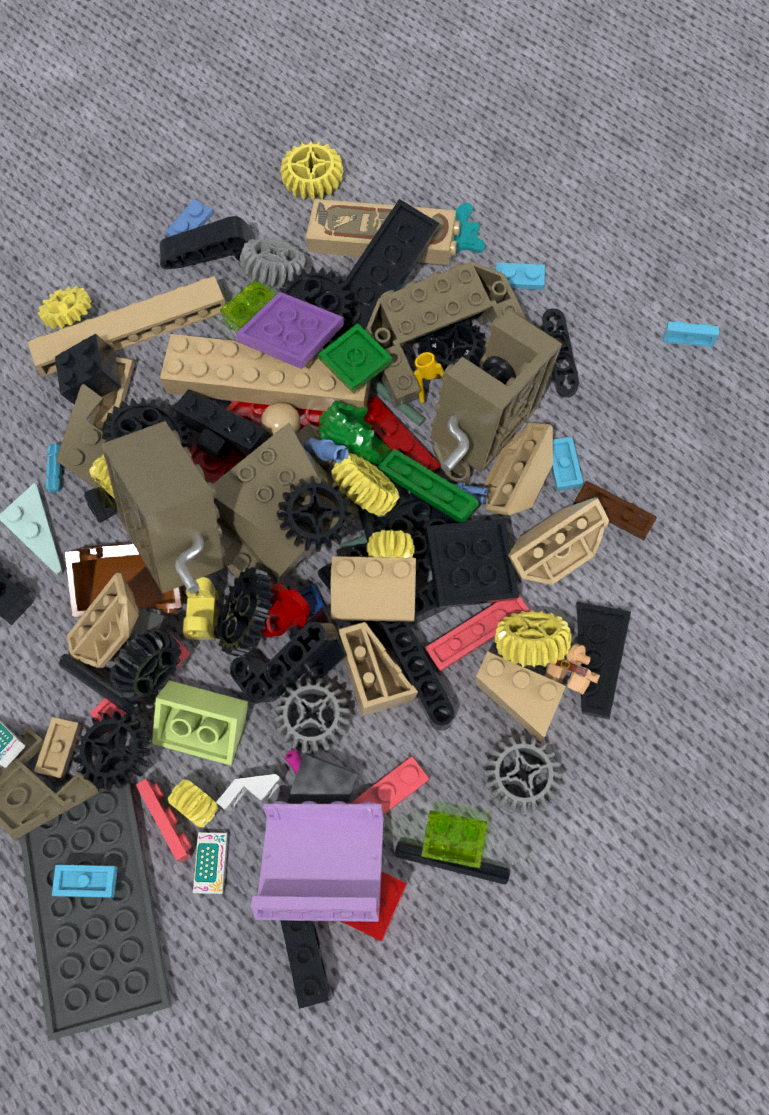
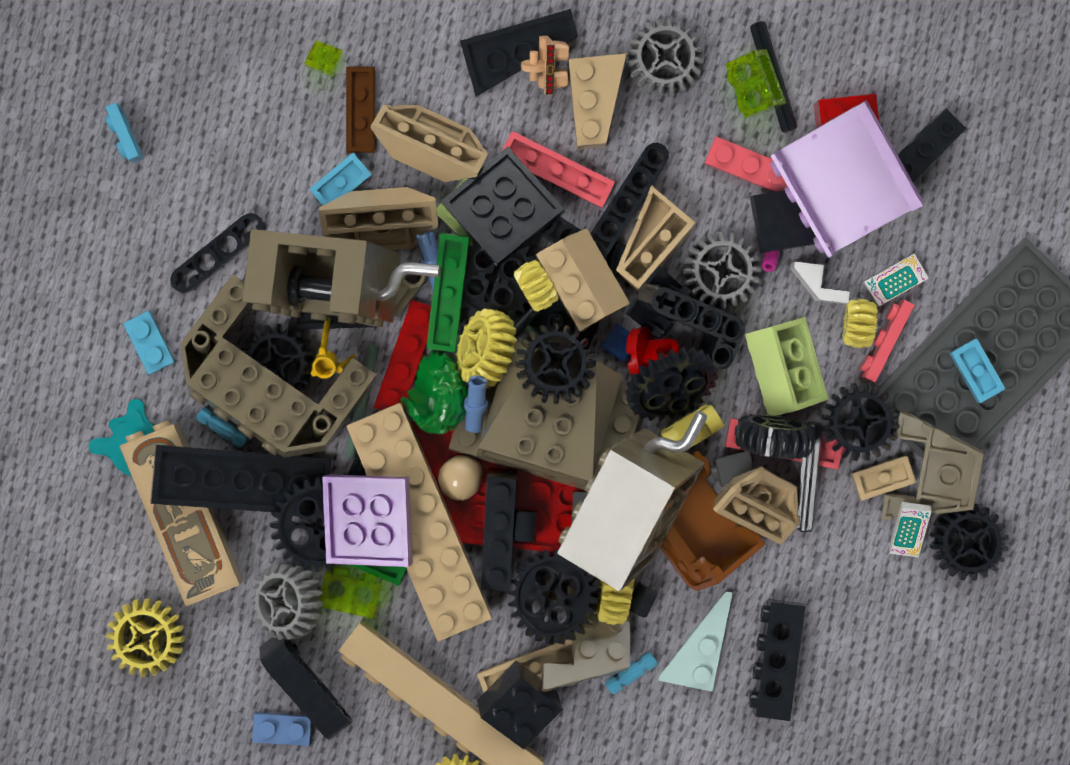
camera: 125 degrees left, 20 degrees up
(355, 358) = (364, 433): green plate -> none
(533, 638) = (550, 108): light yellow gear -> none
(672, 503) = (323, 58): none -> clear neon green slope

